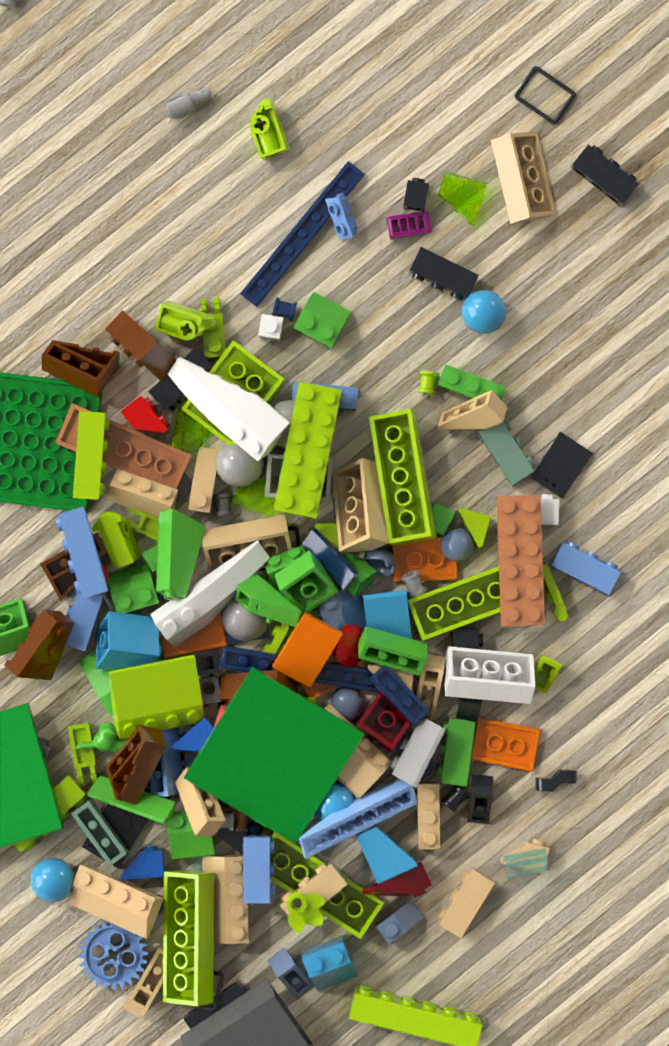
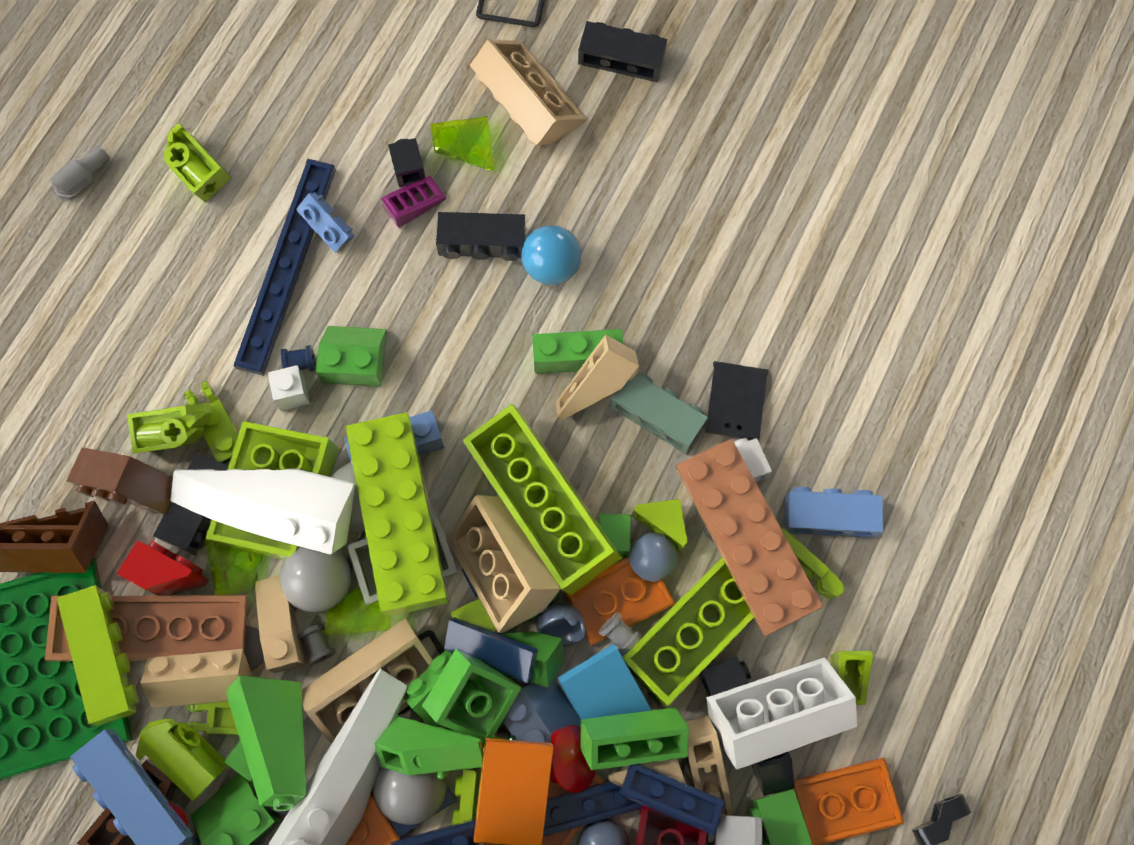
camera: 25 degrees left, 15 degrees down
(428, 382) = (520, 371): lime bush -> none

